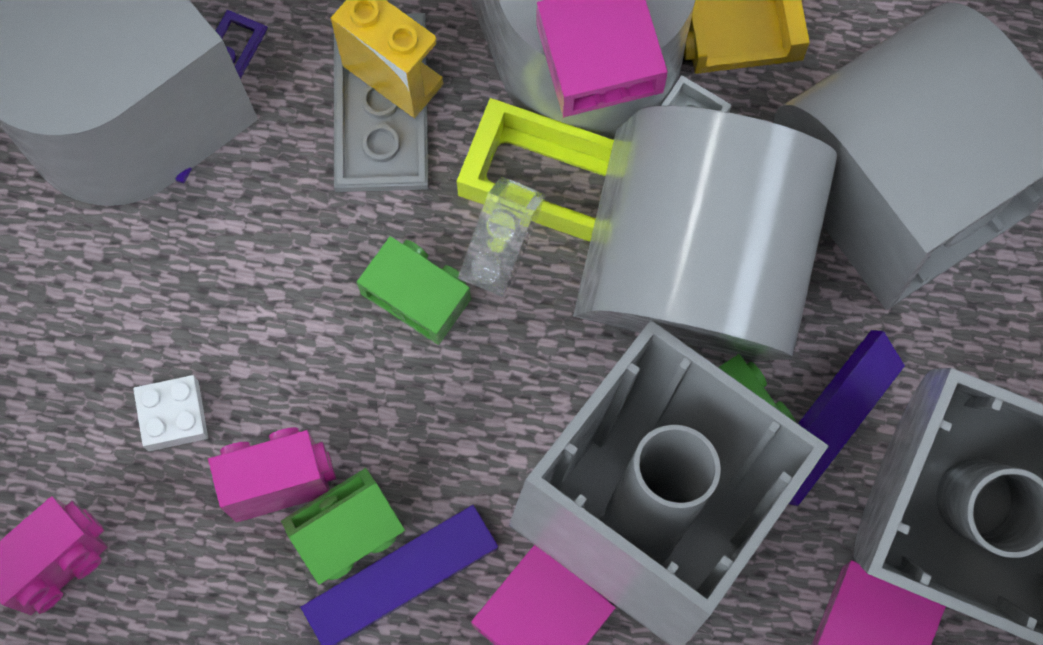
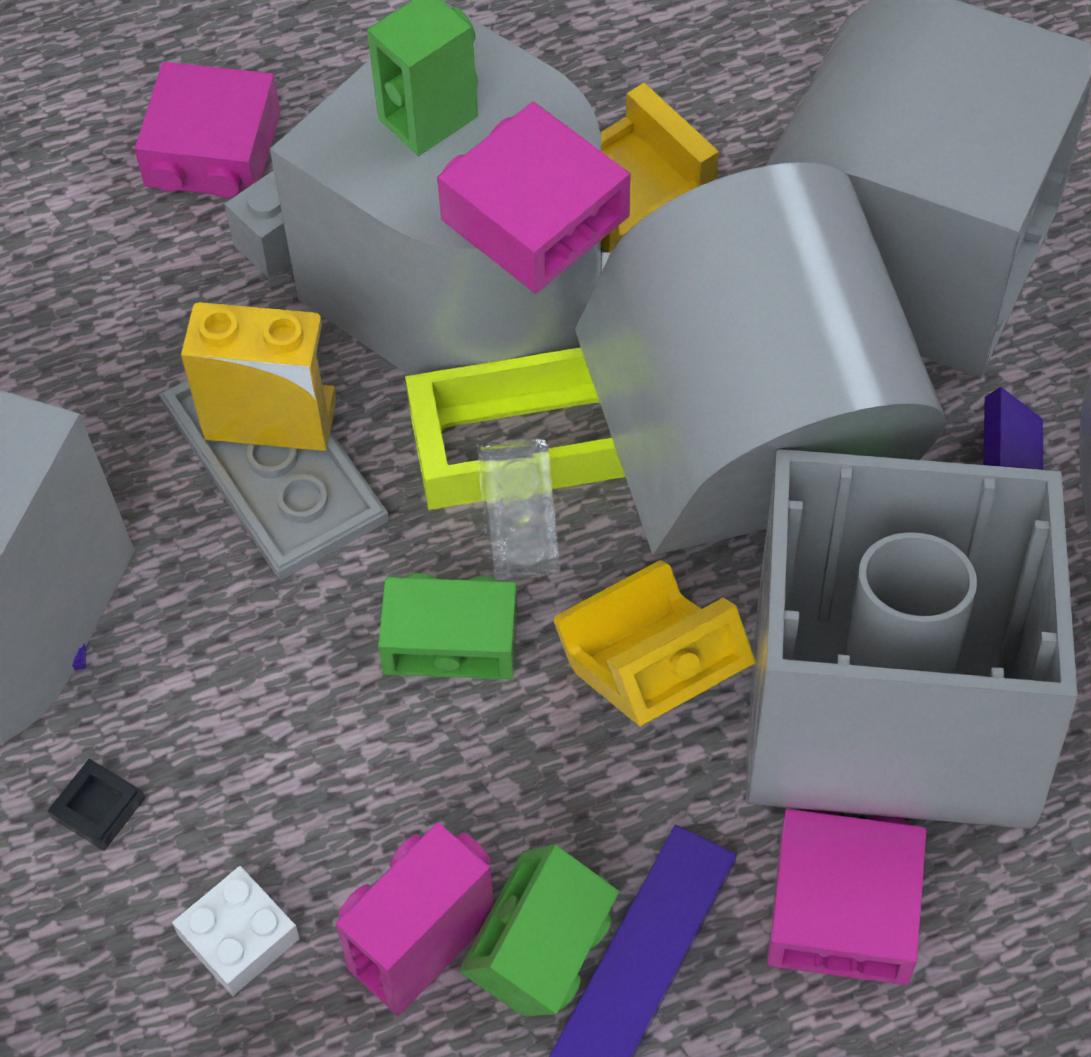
camera: 30 degrees left, 15 degrees down
(137, 280) = (96, 804): none -> black tile
(527, 379) = (651, 644): none -> yellow panel

